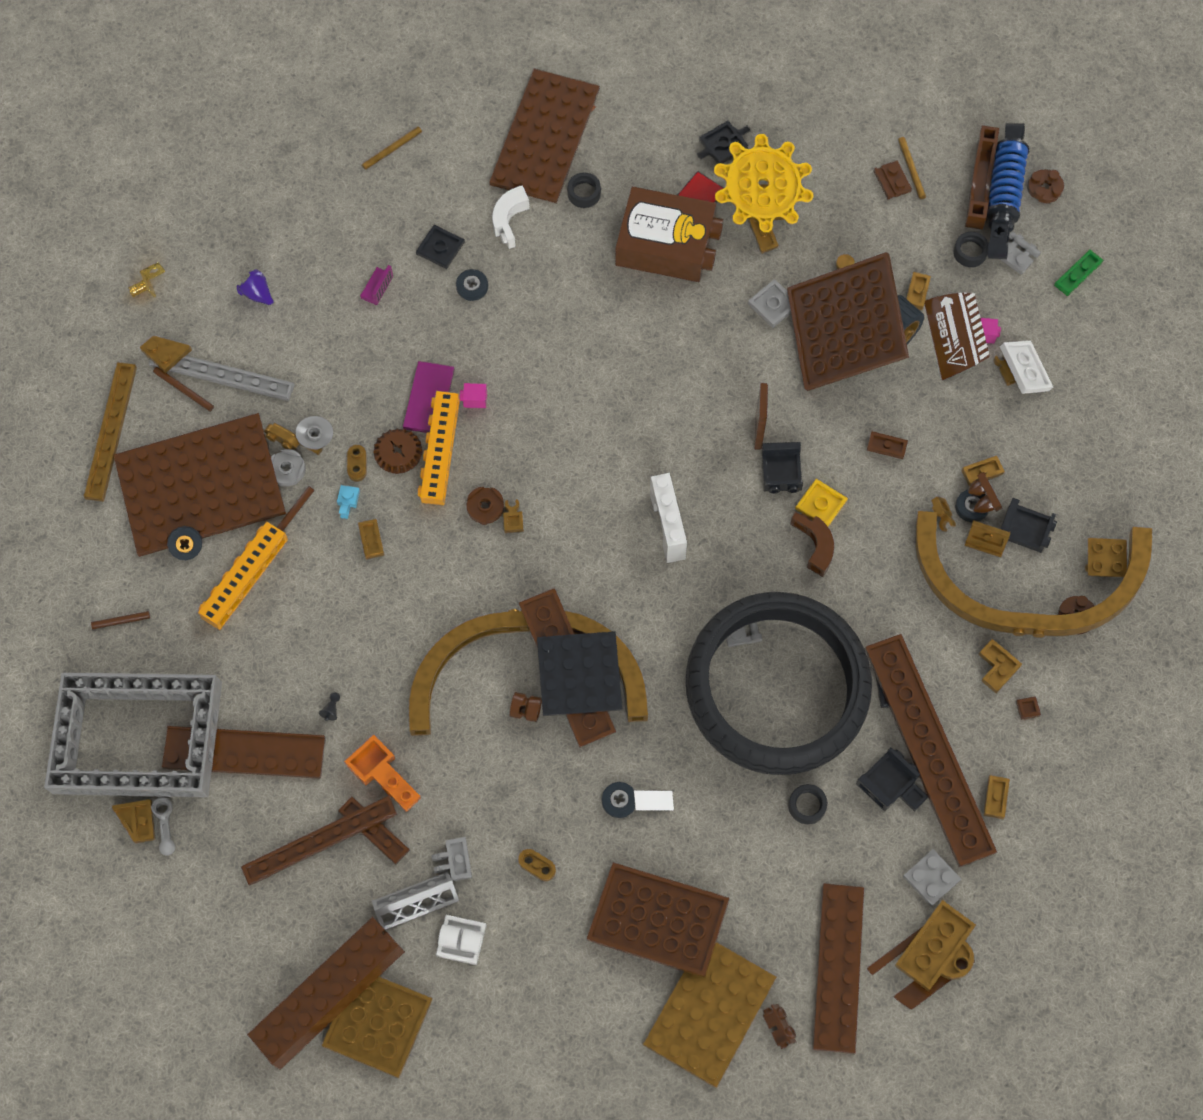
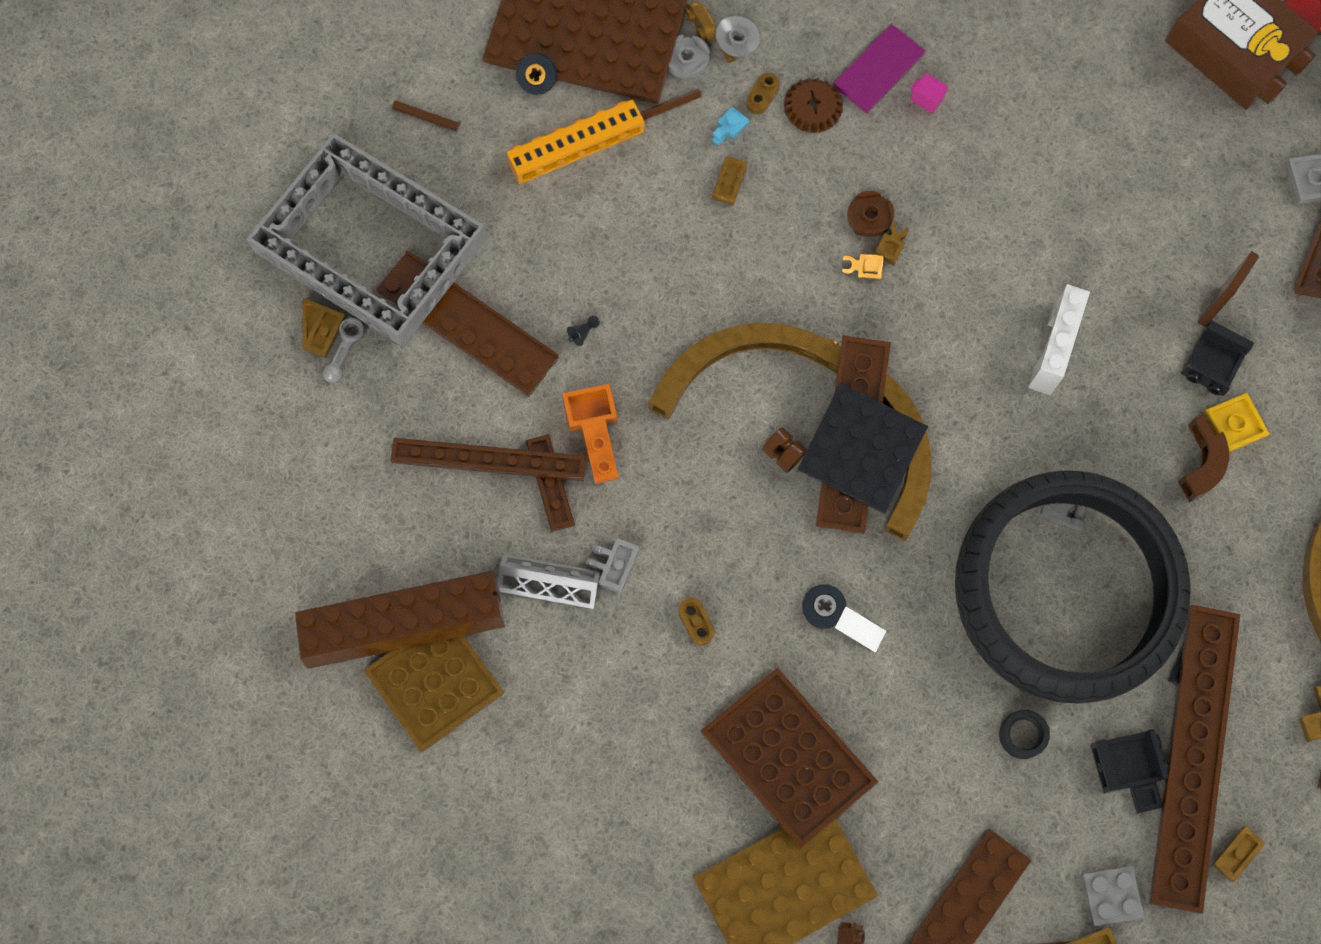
camera: 25 degrees right, 5 degrees up
(440, 448) = (859, 126): light orange brick -> none
(460, 939) = (570, 650): white plate -> none
(505, 542) = (868, 265): none -> plate

